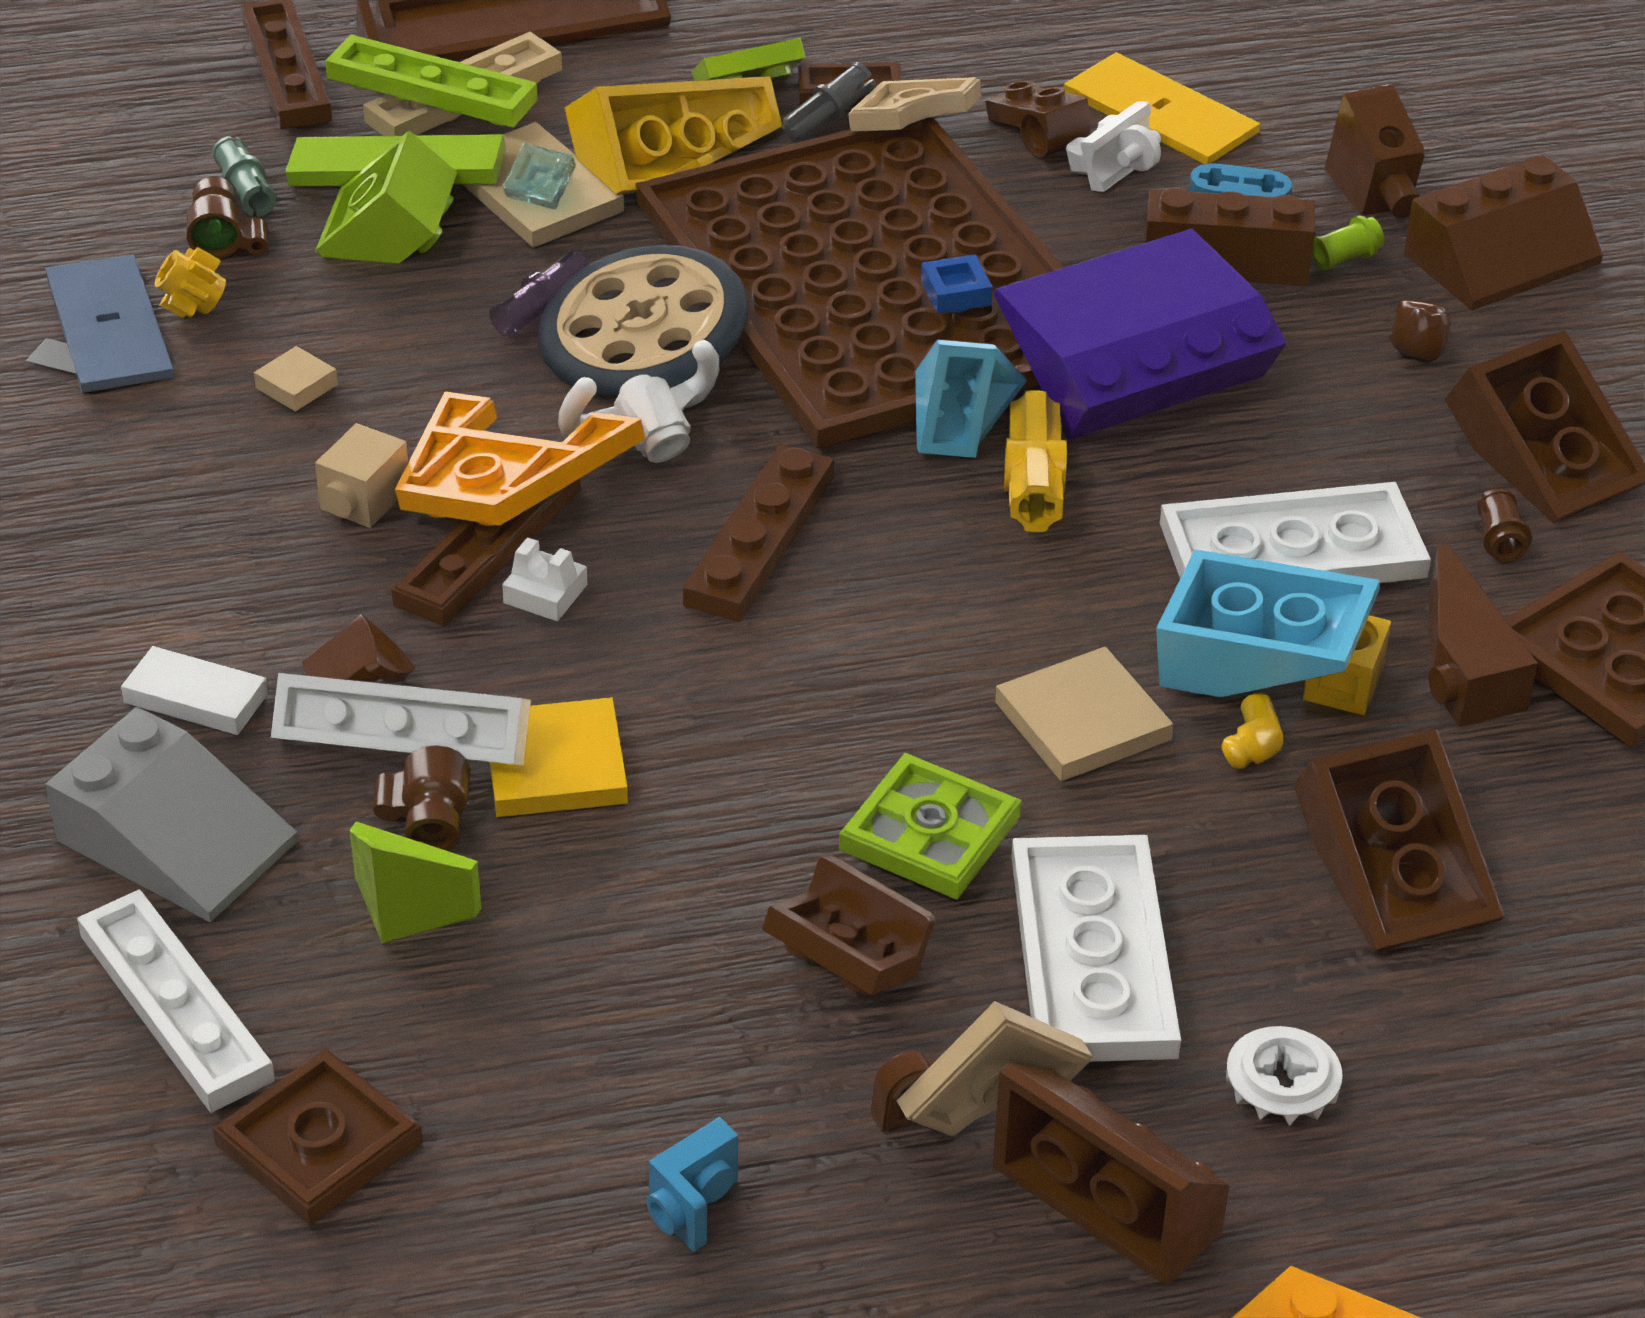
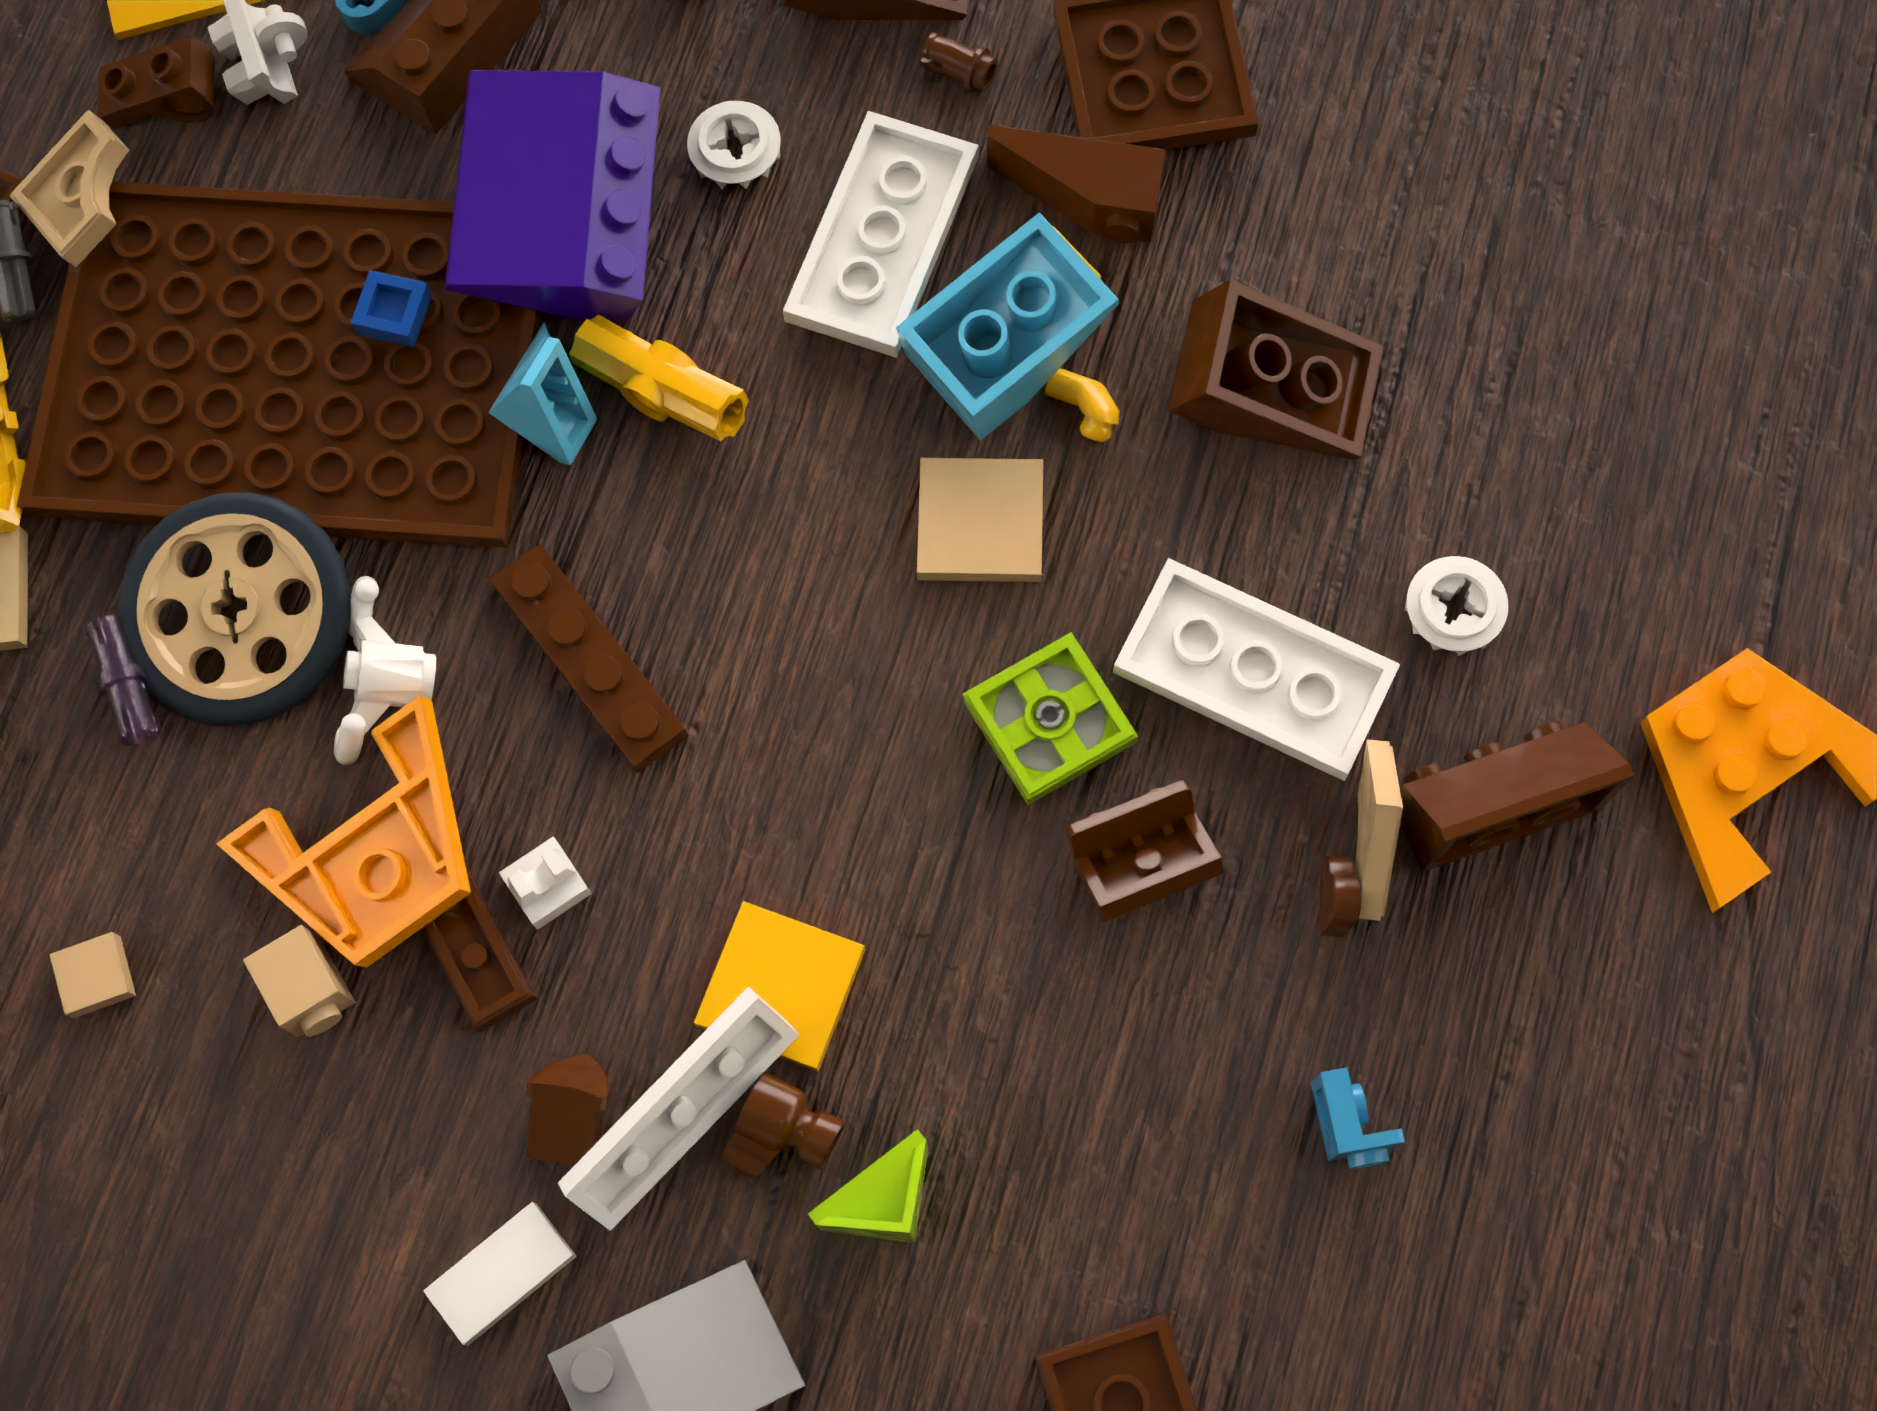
camera: 55 degrees left, 30 degrees up
(1289, 414) = (754, 129): none -> white gear

